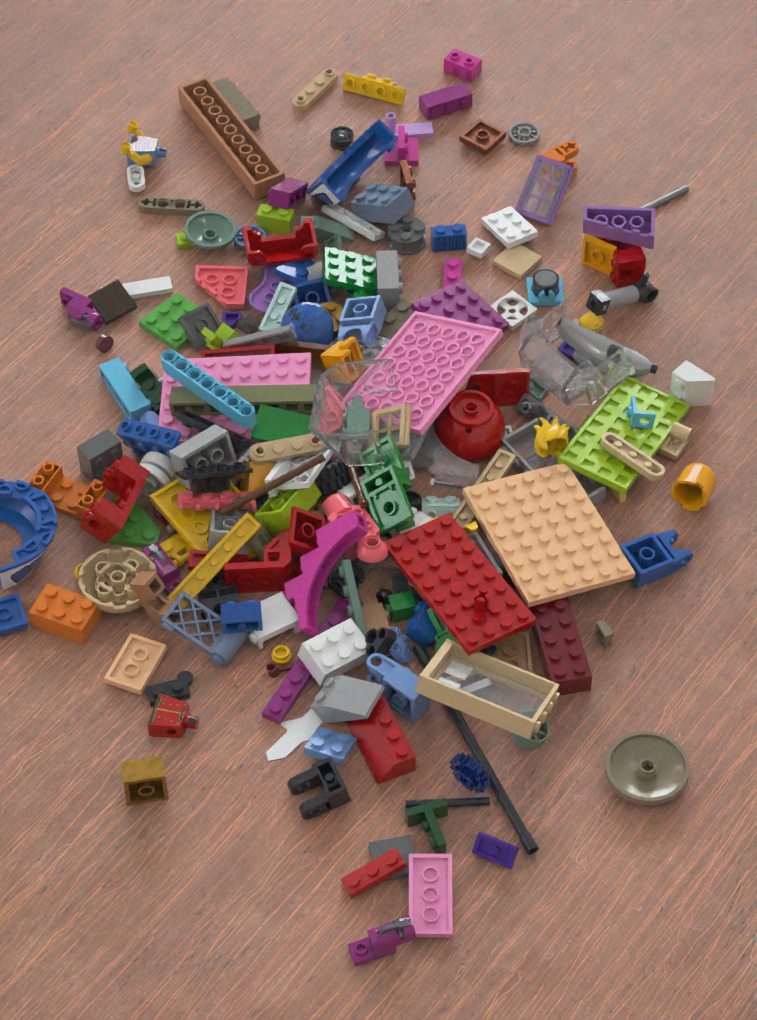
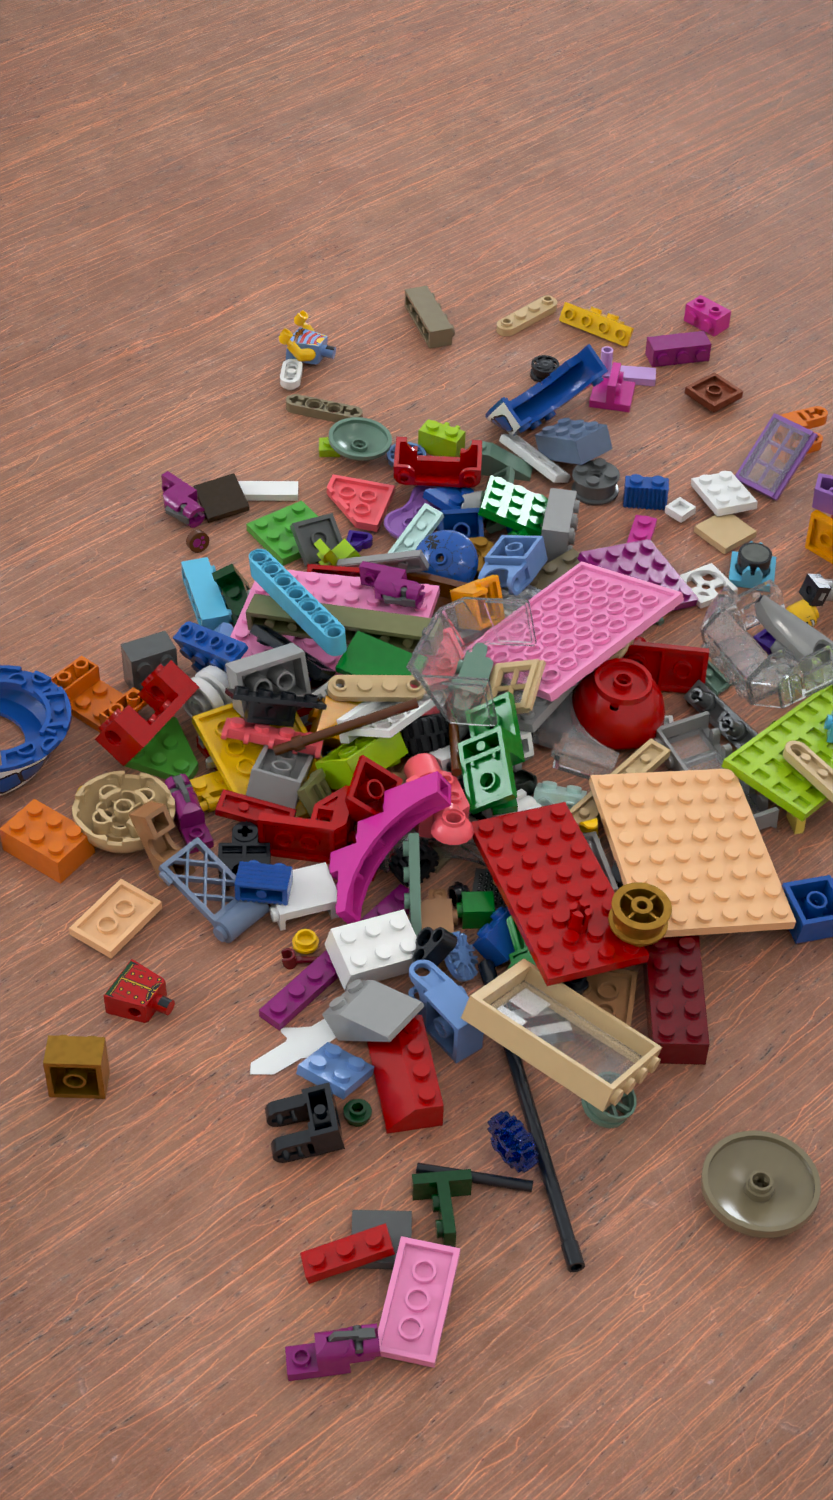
camera: 10 degrees right, 5 degrees down
(175, 688) = (154, 958): black hinge -> none
(215, 559) = (248, 807): yellow tile -> none
(230, 136) = (415, 349): nougat brick -> none
(248, 324) = (376, 547): clear smoke plate -> none
(275, 360) = (392, 585): none -> magenta plate
(287, 193) = (462, 413): magenta brick -> none
(353, 777) = (357, 1118): none -> dark green plate
(406, 179) = (610, 419): copper plate -> none
(495, 850) = (523, 1256): dark purple plate -> none
(524, 133) = (765, 398): light grey wheel -> none
(524, 590) = (639, 914): none -> pearl gold wheel
(550, 438) = (718, 735): yellow hair -> none
(604, 633) = (739, 993): dark tan plate -> none

